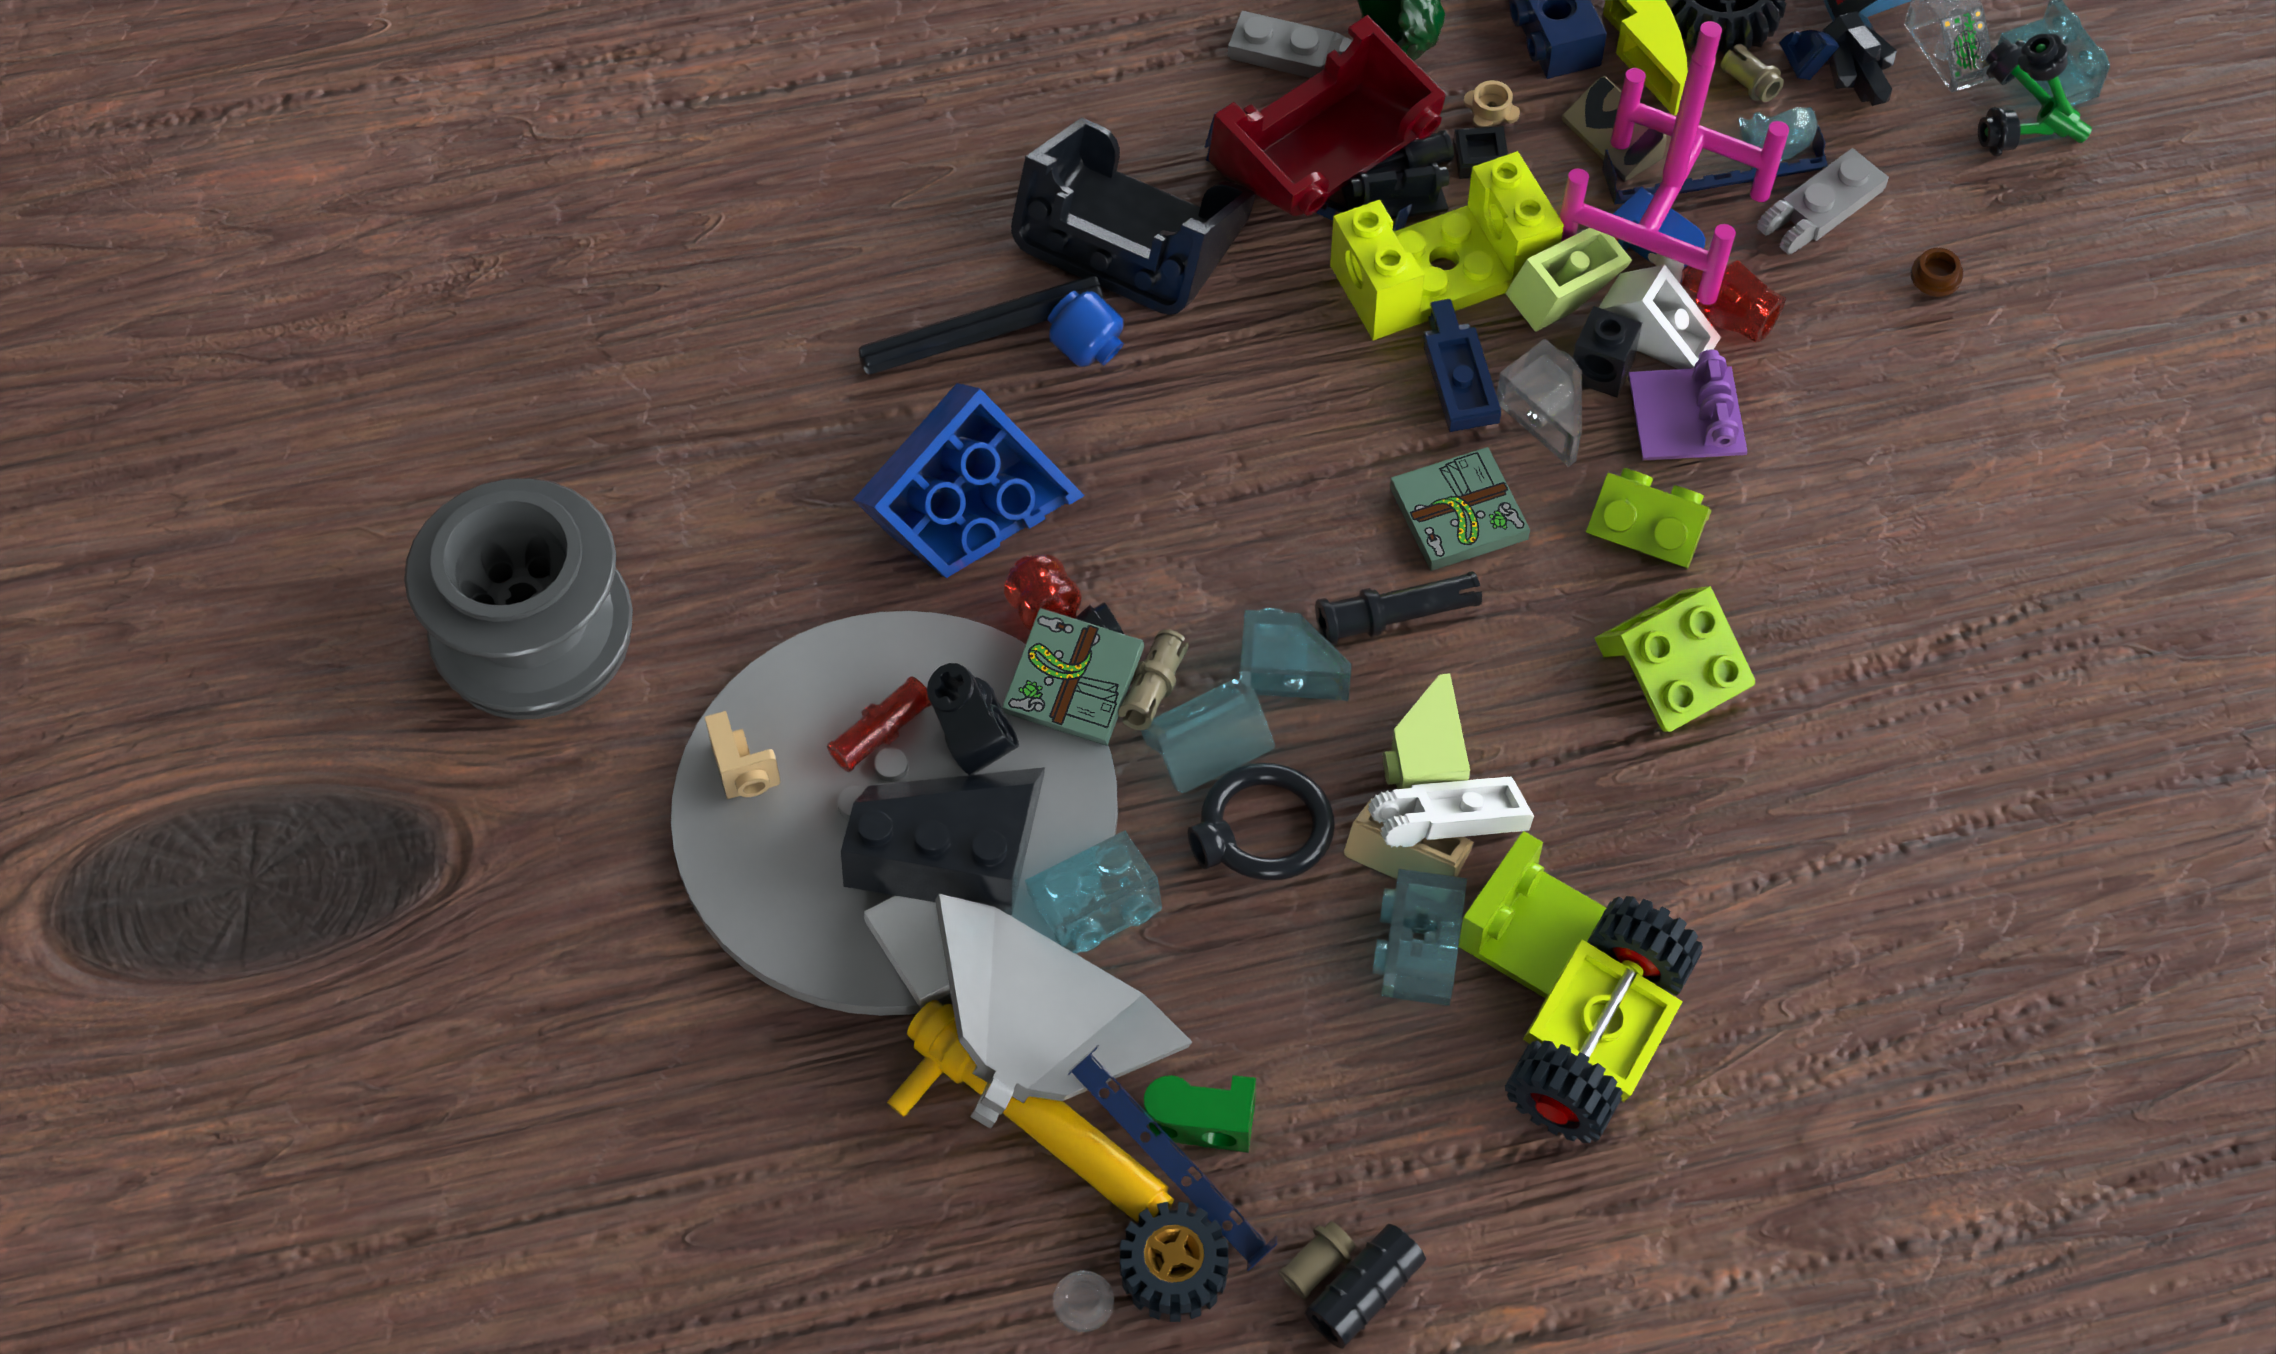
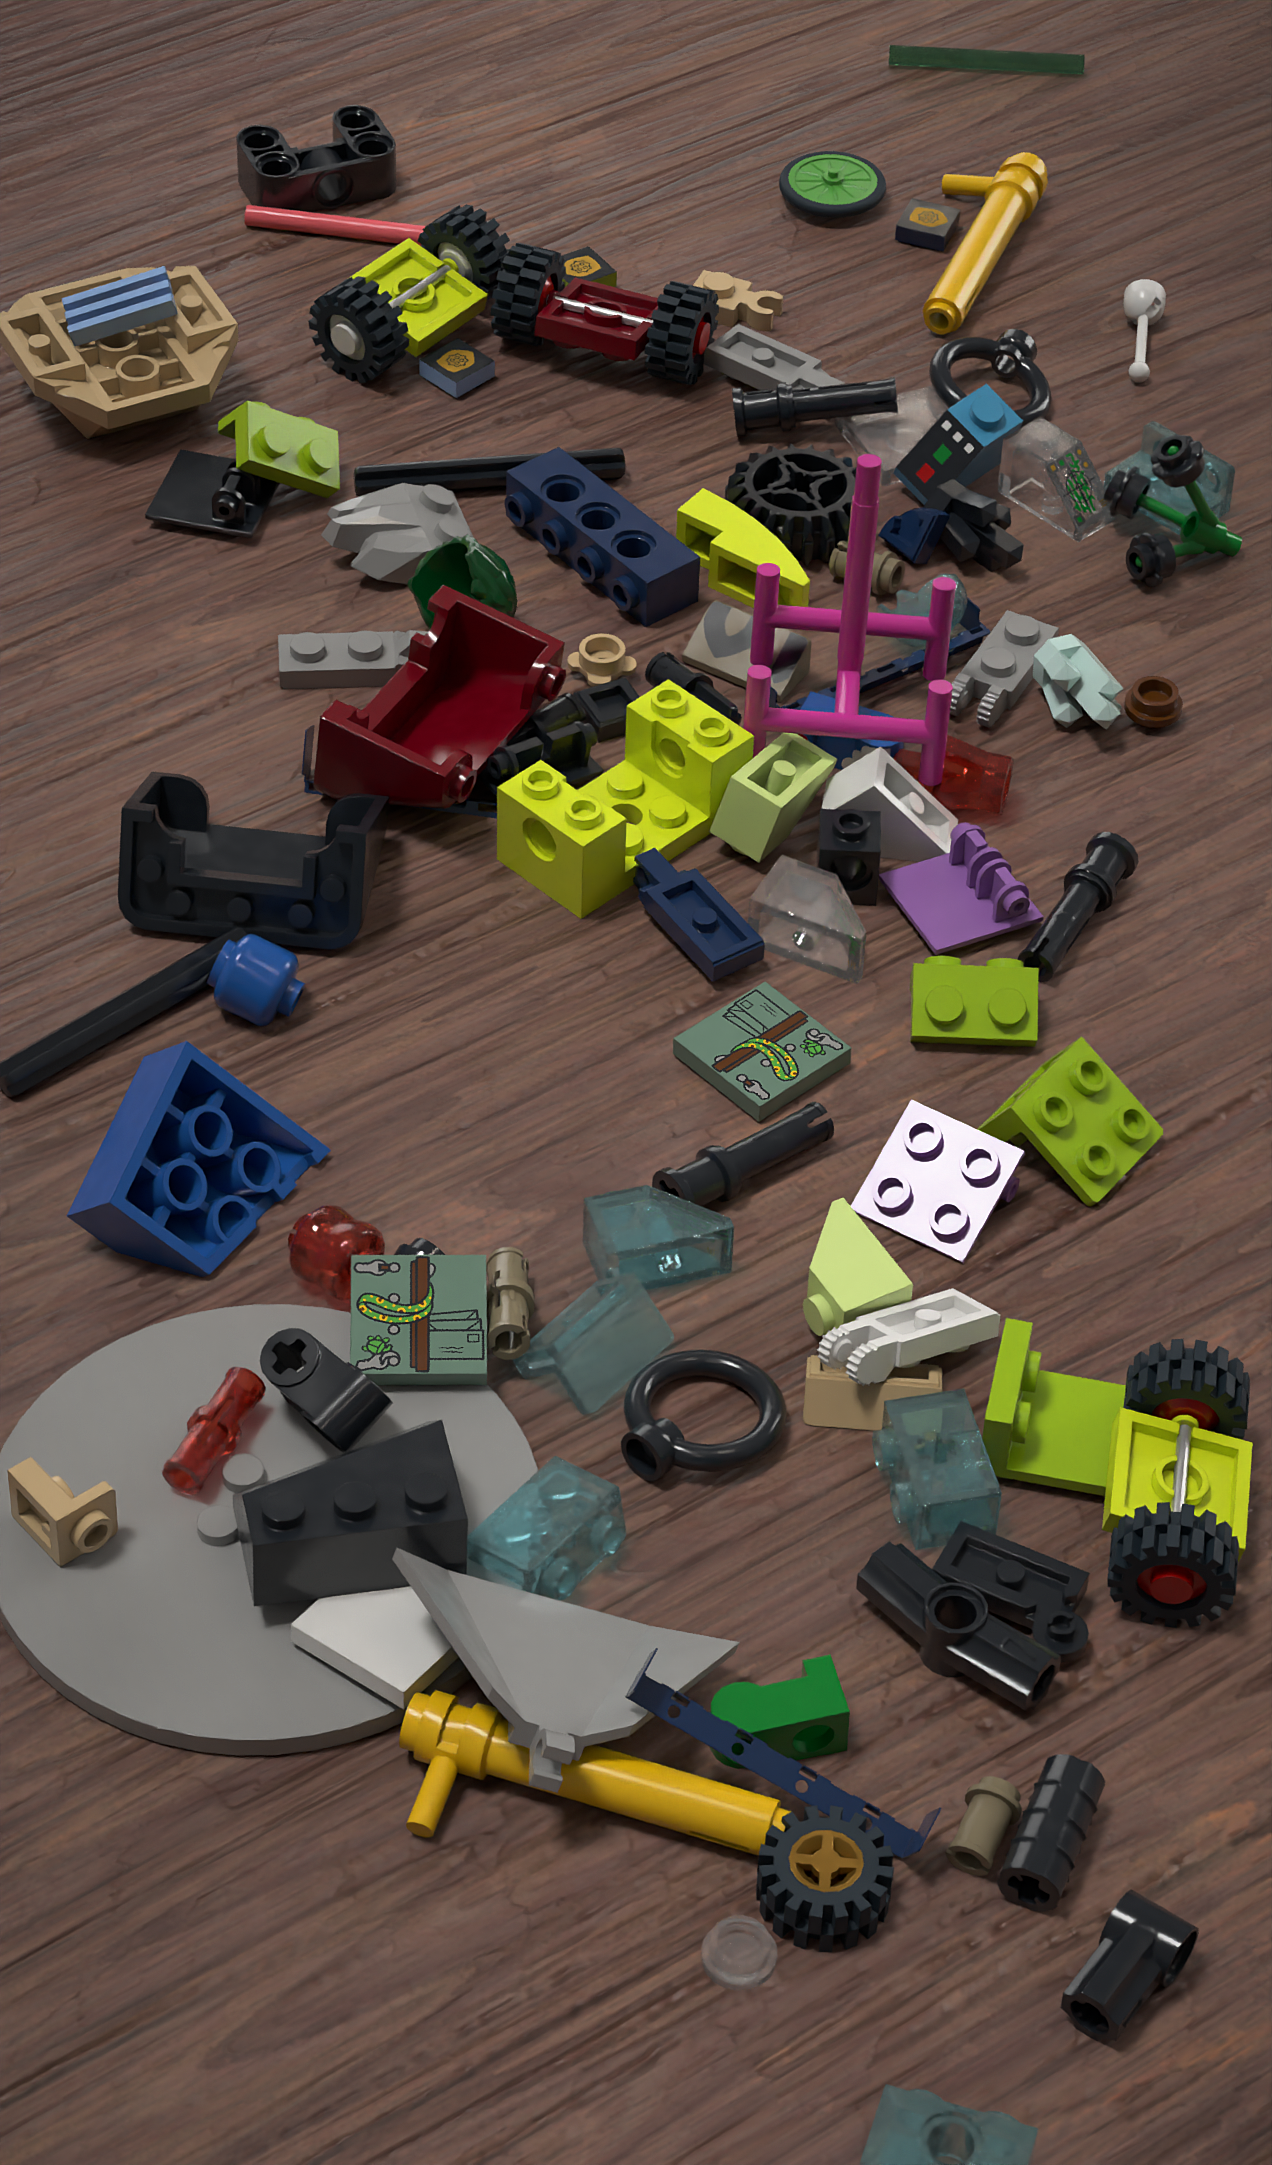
camera: 25 degrees left, 15 degrees down
(1388, 1111) = (955, 1627): none -> black piece
(1440, 1061) = (1020, 1586): none -> black hinge
(1543, 675) = (938, 1181): none -> hinge
(1549, 152) = (667, 667): none -> black axle
(1794, 438) = (1087, 890): none -> black pin
(1877, 237) = (1075, 677): none -> light aqua rock

